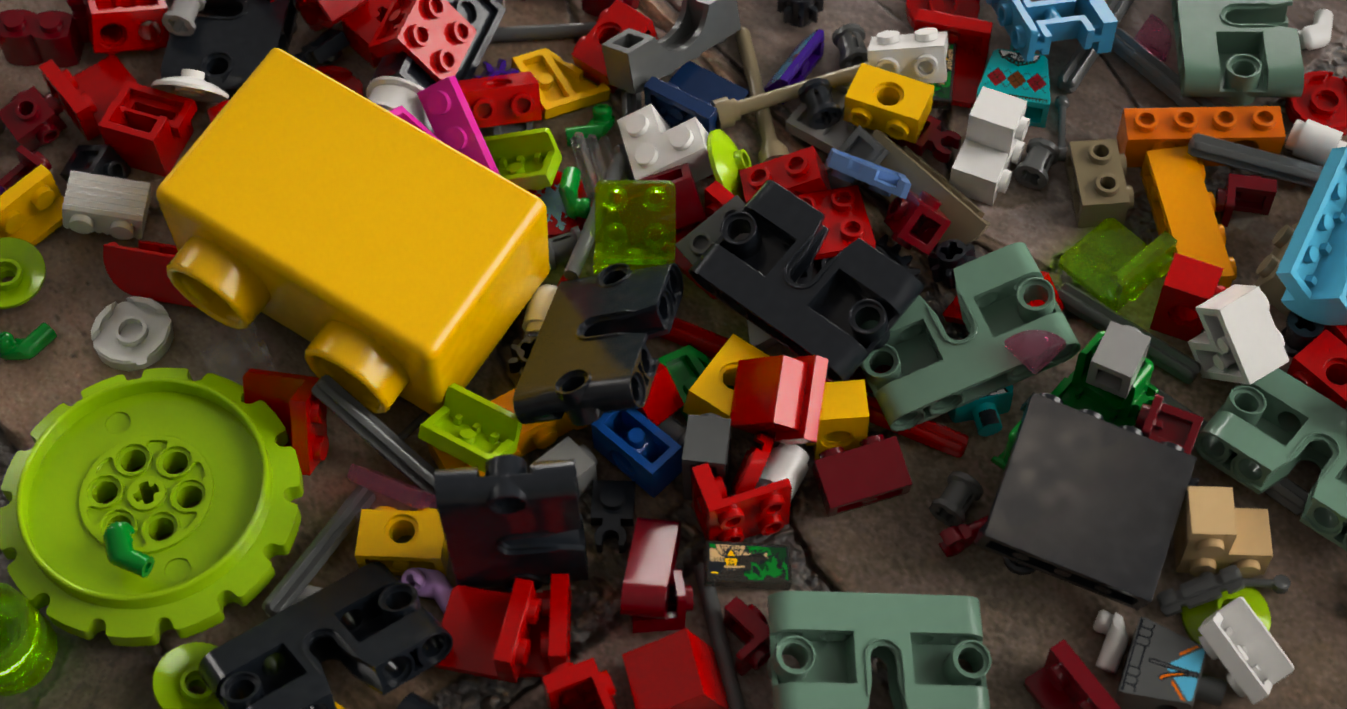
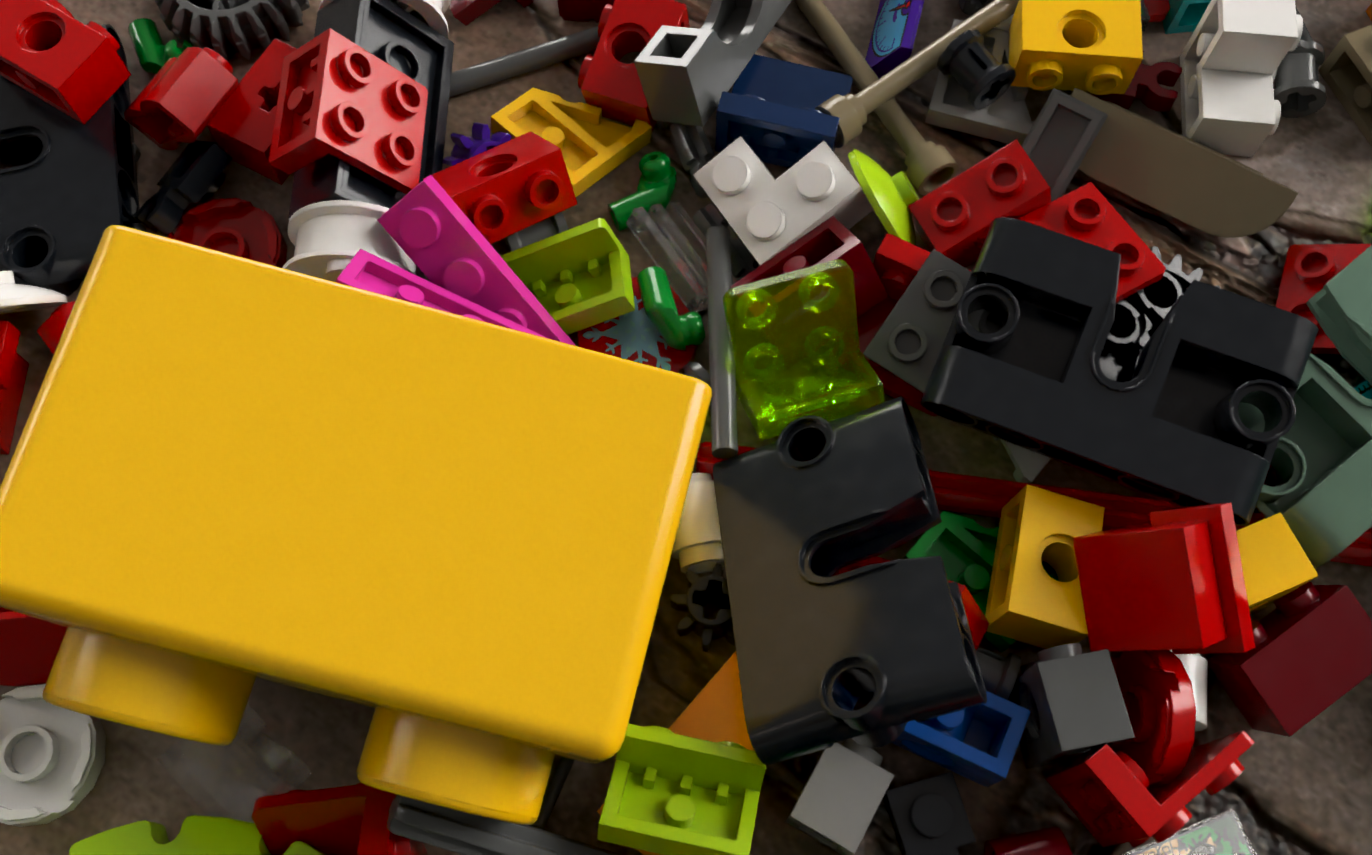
camera: 20 degrees left, 10 degrees up
(878, 177) = (1117, 162): medium blue wing -> none
(917, 221) = (1200, 214): dark red brick -> none
(947, 257) = (1262, 263): black gear -> none

